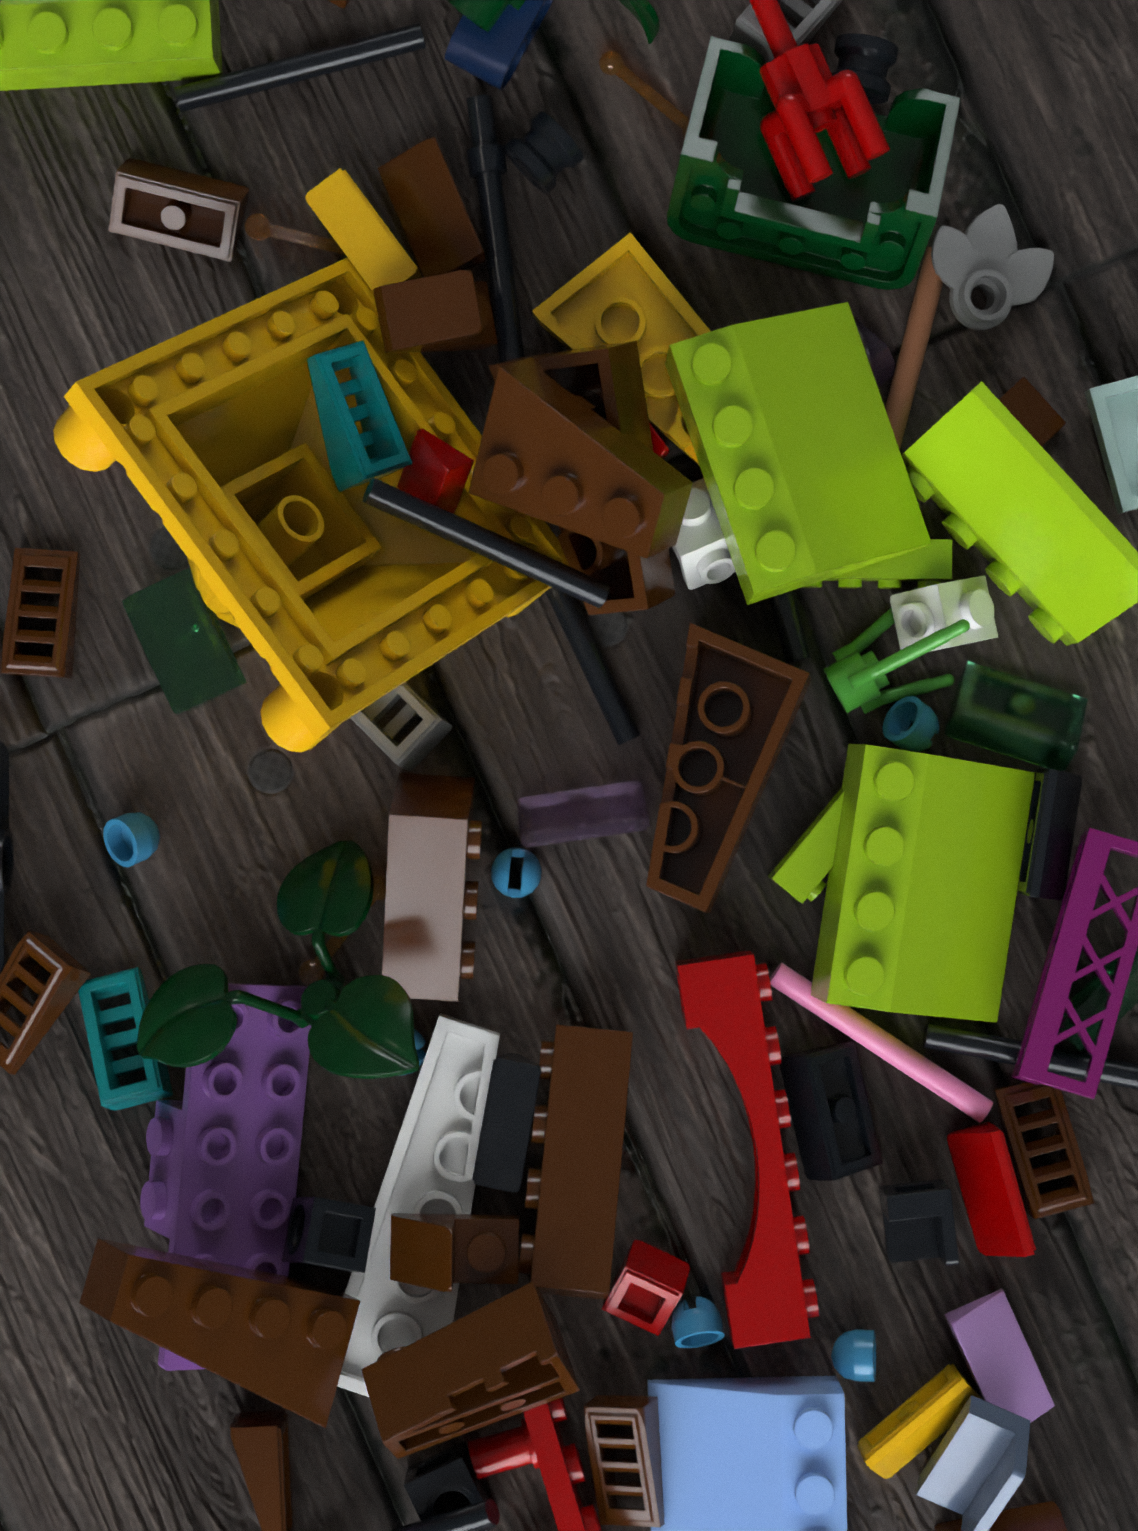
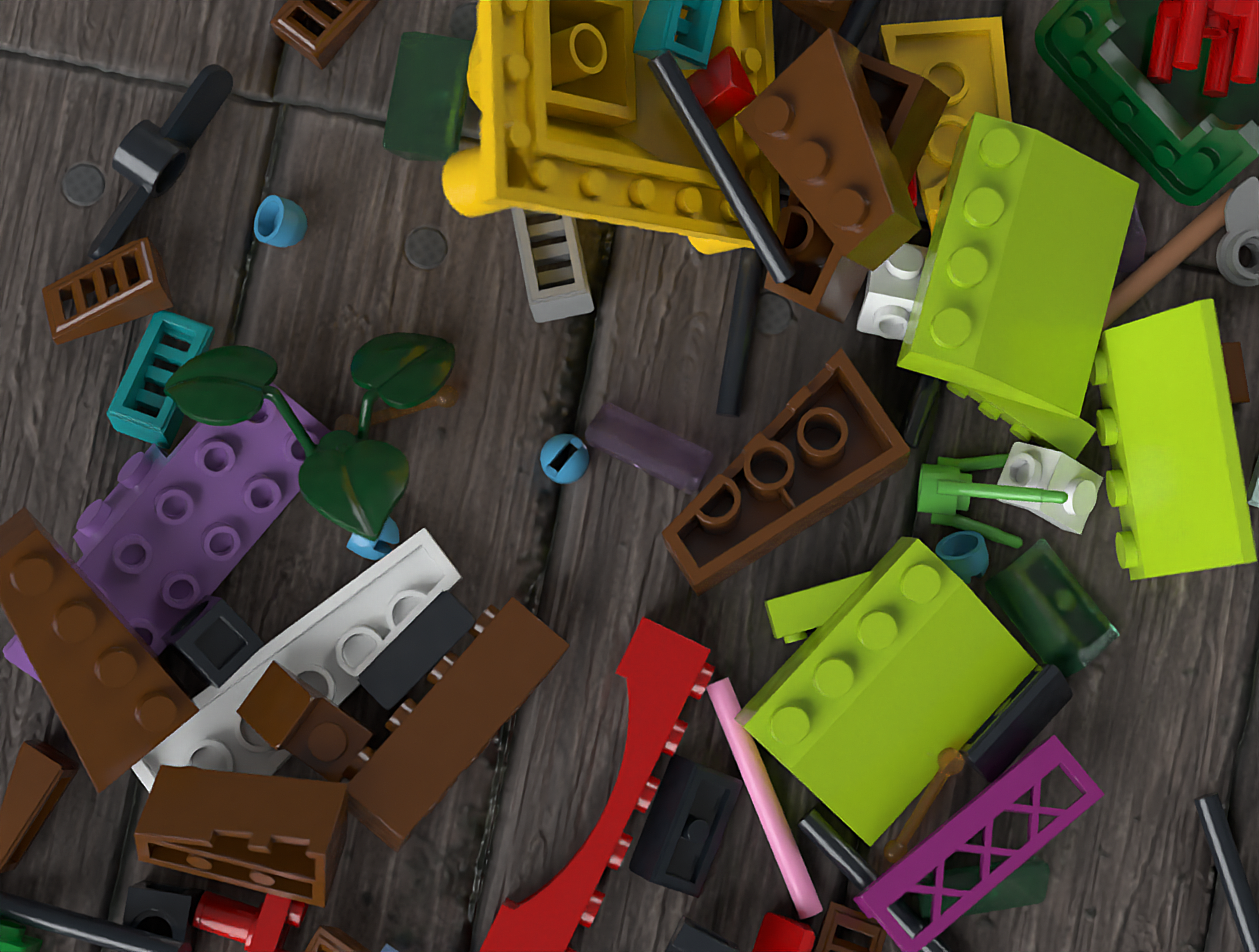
camera: 40 degrees right, 5 degrees down
(429, 885) = (487, 418): wedge -> none
(647, 1287) = (438, 866): red slope -> none
(697, 1325) = (457, 925): dark azure hinge -> none
(1018, 907) = (950, 763): none -> clear orange hinge

